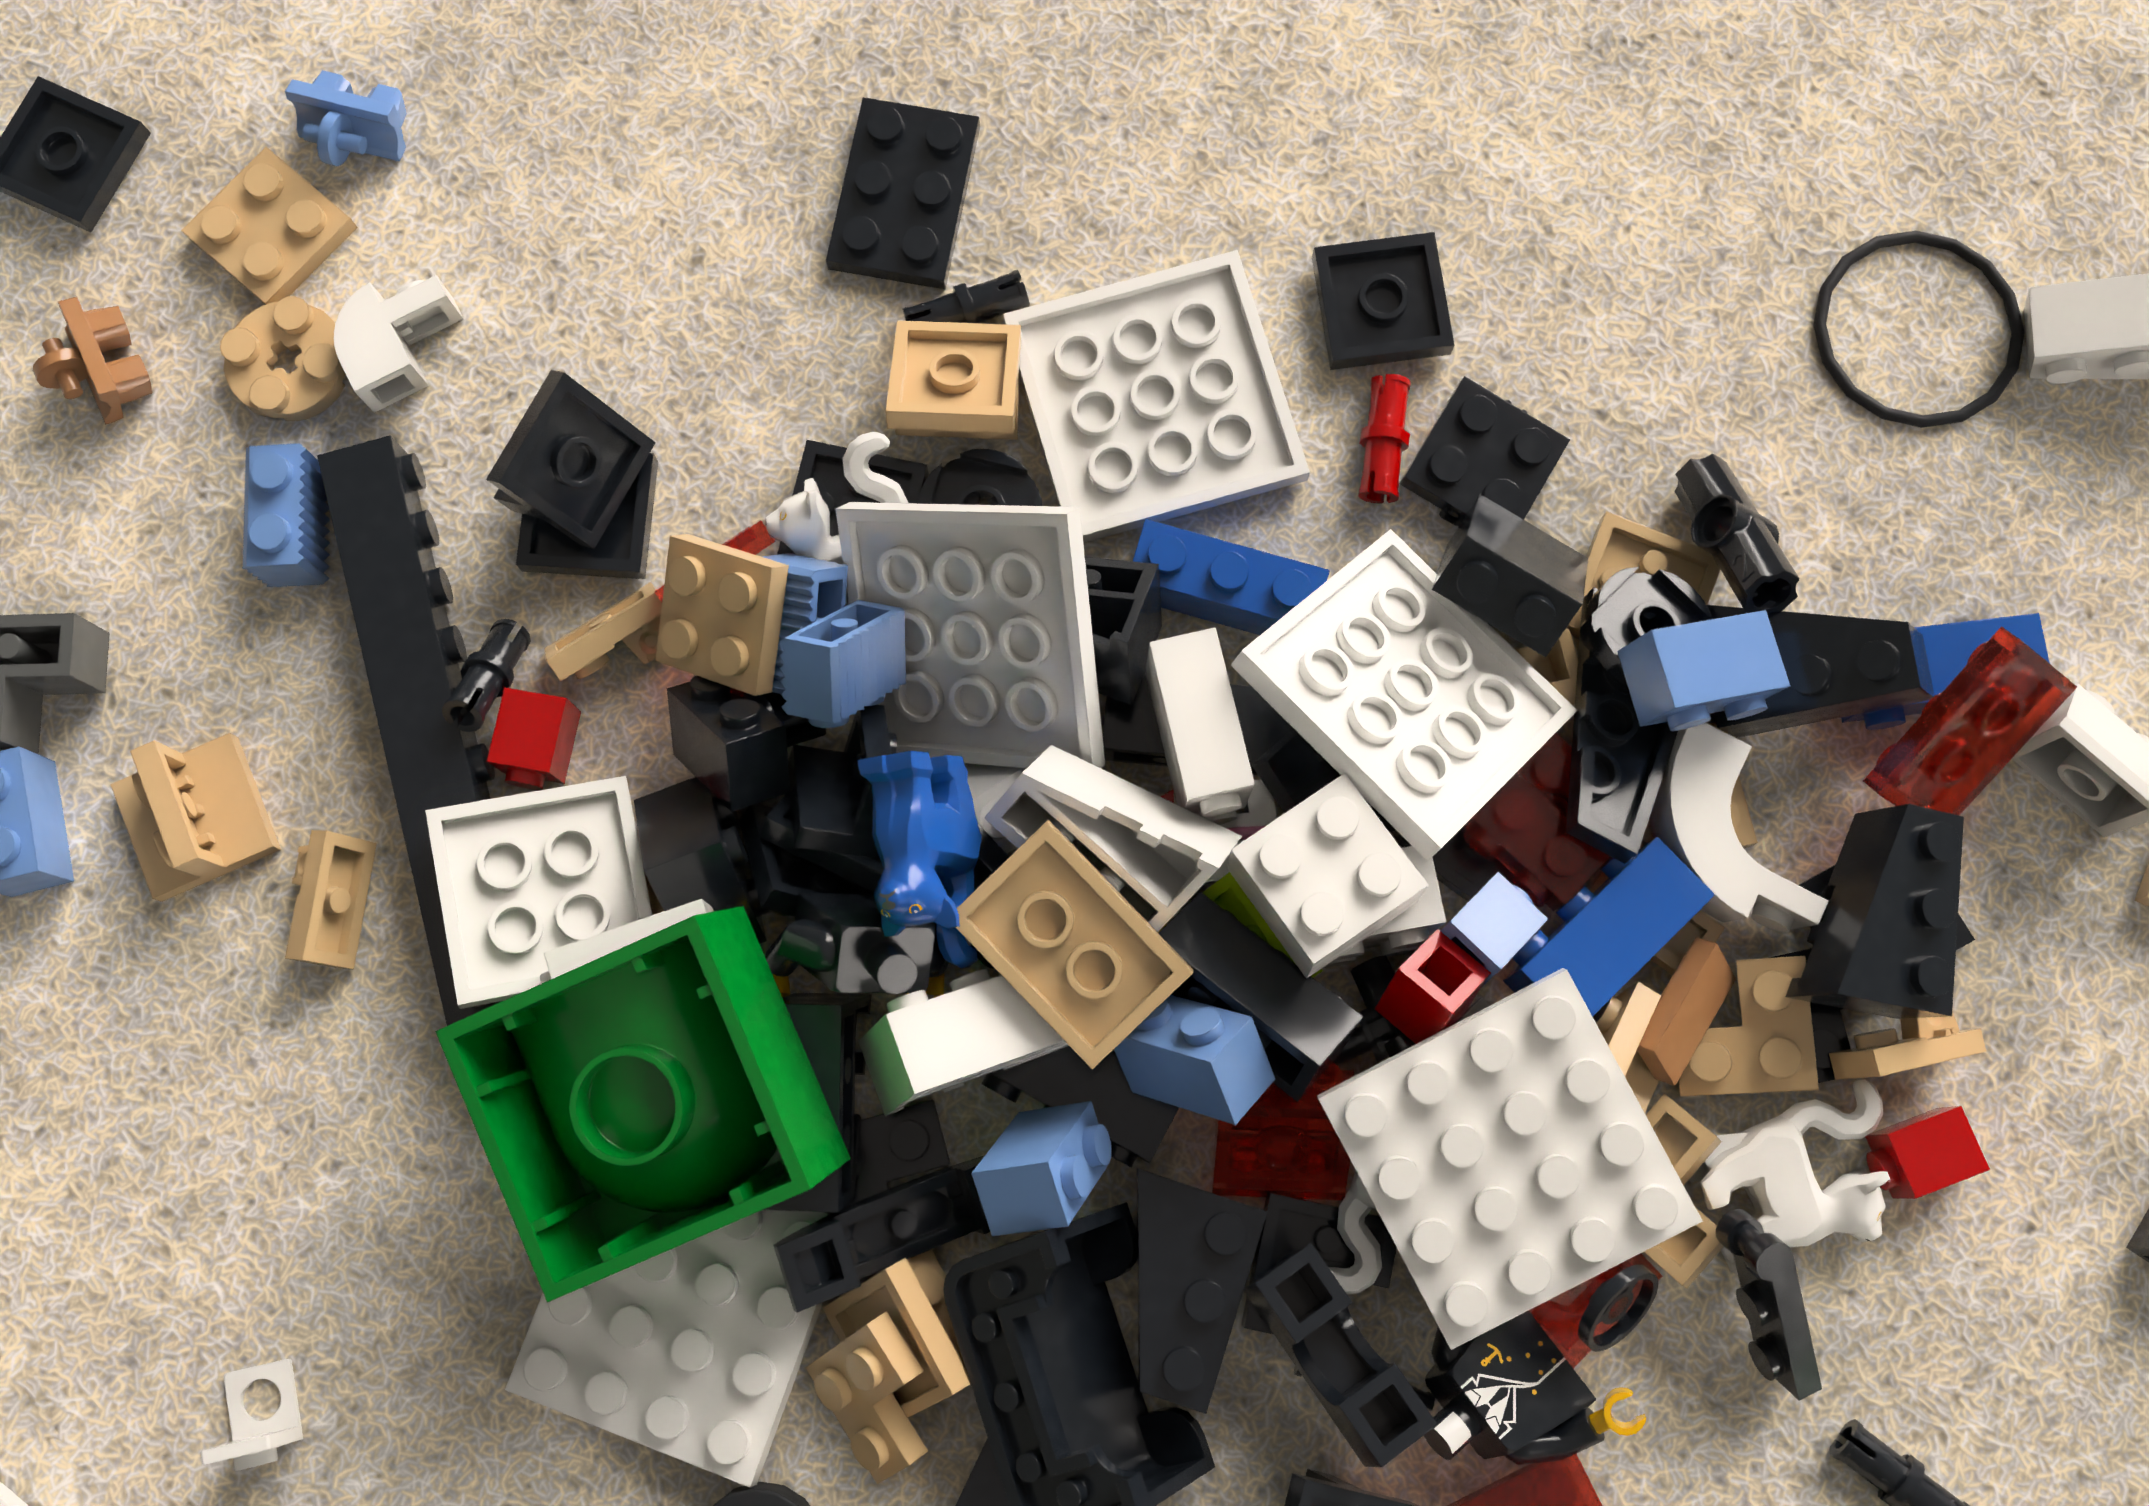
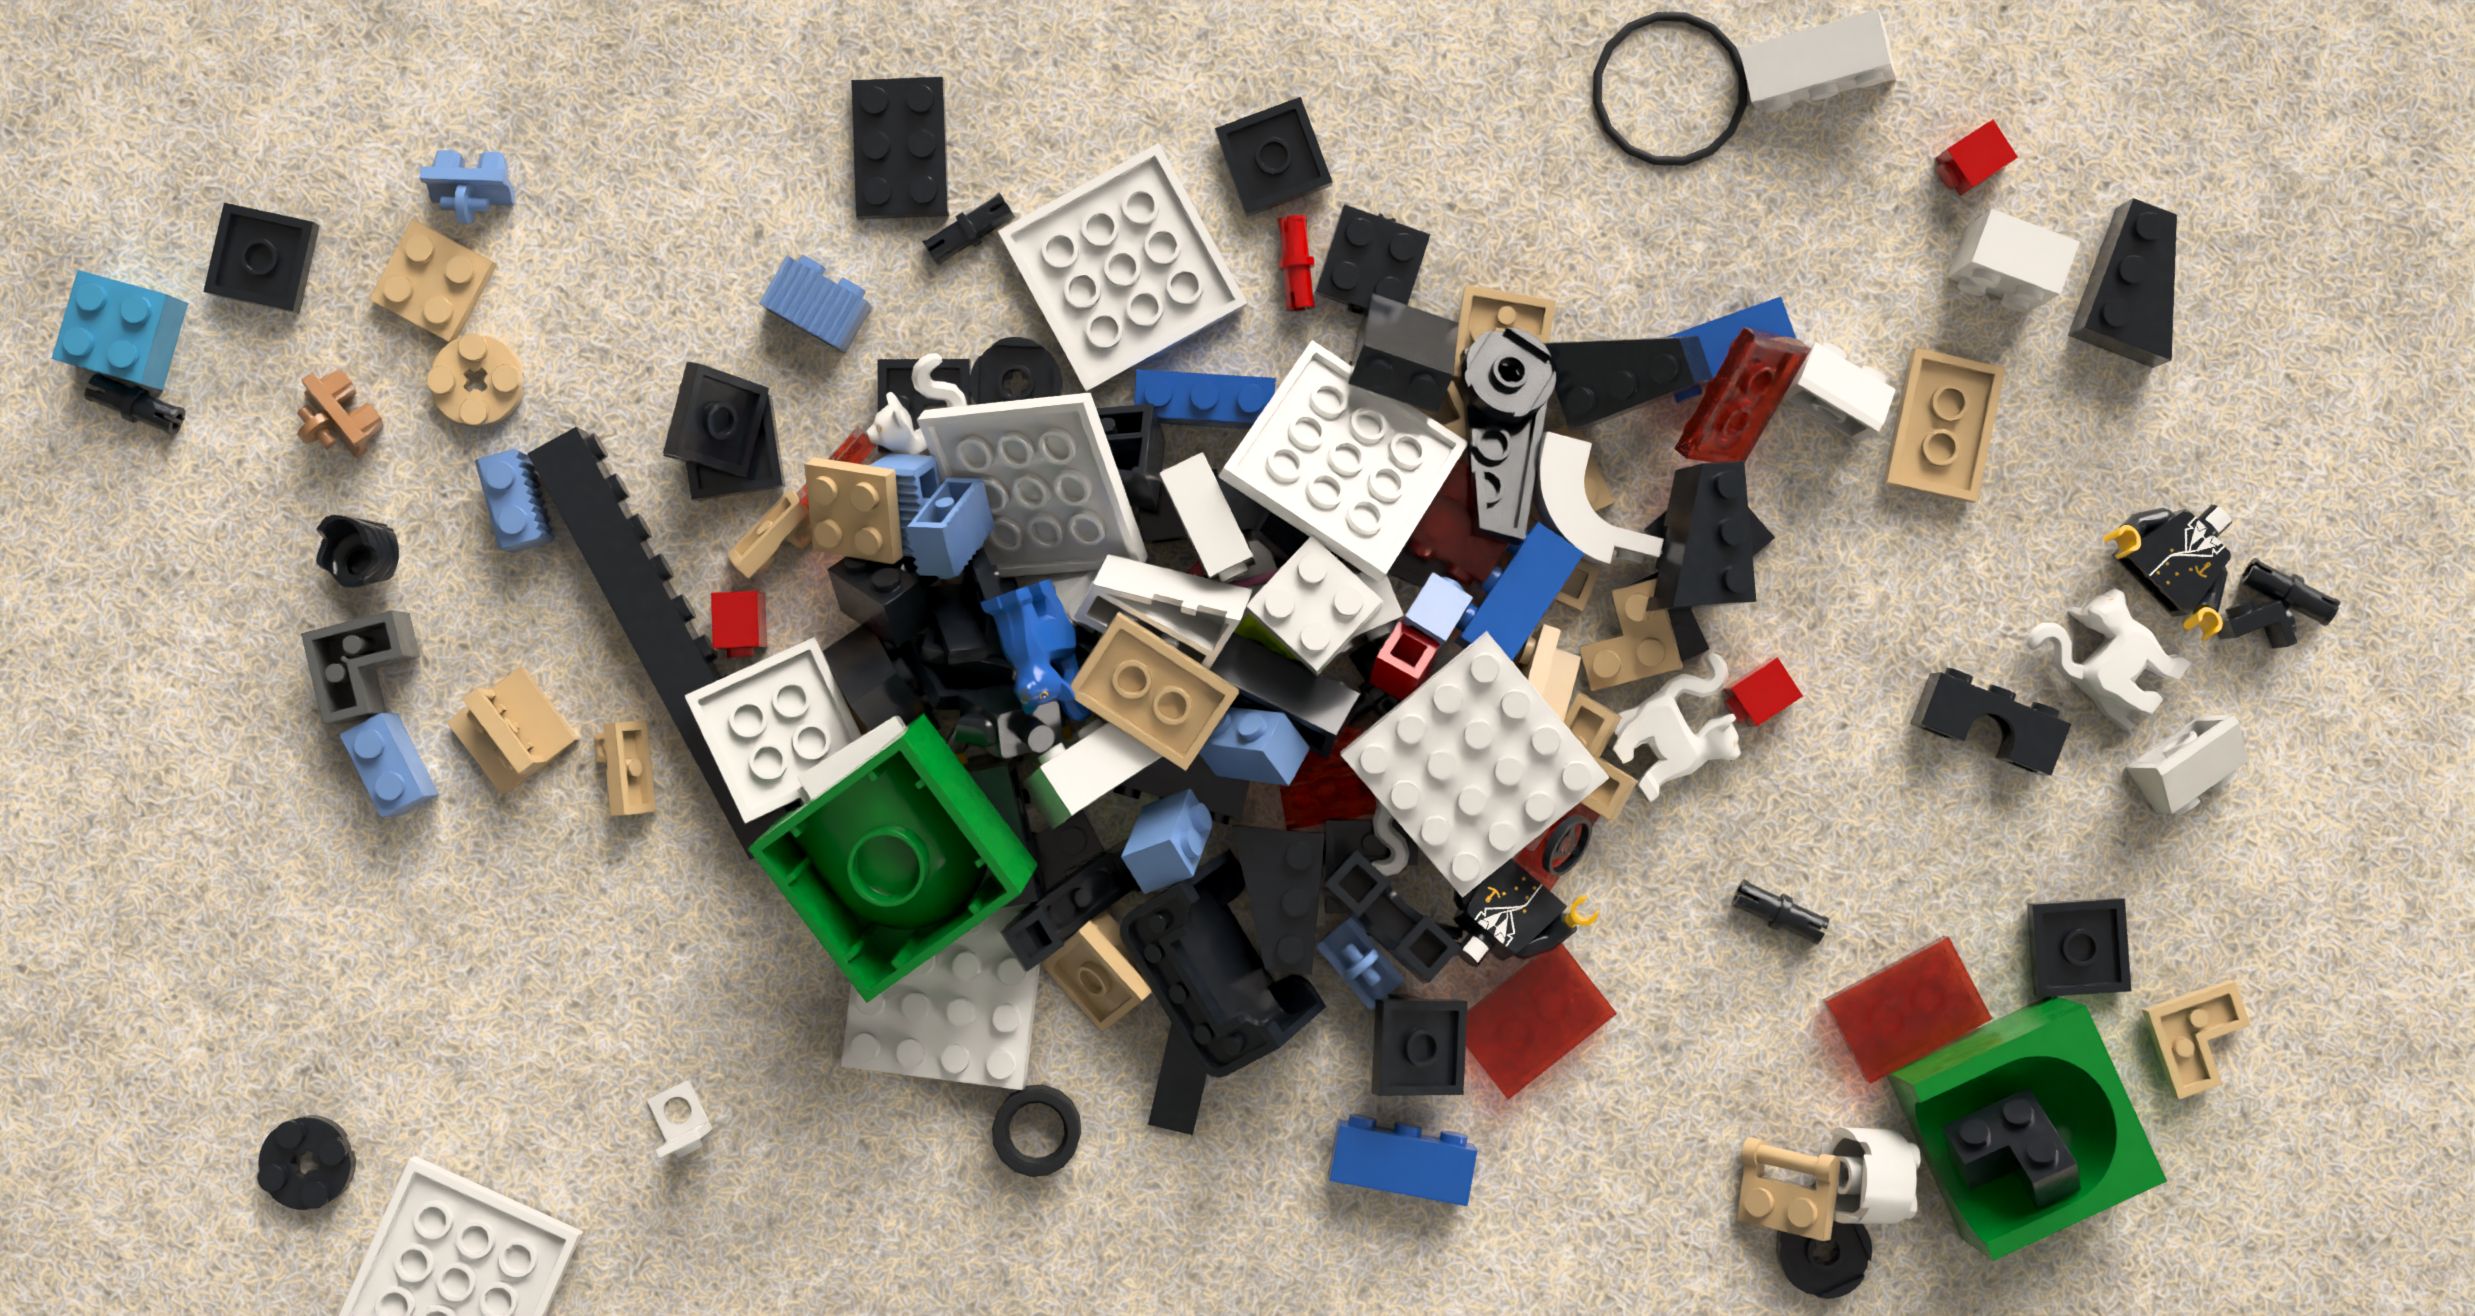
camera: 15 degrees left, 10 degrees up
(62, 533) = (357, 550): none -> black hair
(376, 335) = (540, 353): white brick -> none
(486, 675) = (694, 585): black pin -> none
(746, 354) = (816, 303): none -> medium blue brick
(858, 1387) = (1078, 1011): tan plate -> none
(954, 380) = (975, 292): tan bracket -> none
(1278, 1412) = (1360, 962): none -> medium blue hips
(1686, 1010) = (1581, 634): medium nougat tile -> none
(1704, 669) = (1546, 400): medium blue brick -> none
(1736, 535) = (1557, 287): black piece -> none
(1771, 1303) = (1669, 818): black plate -> none
(1922, 1044) = (1748, 620): tan hinge -> none

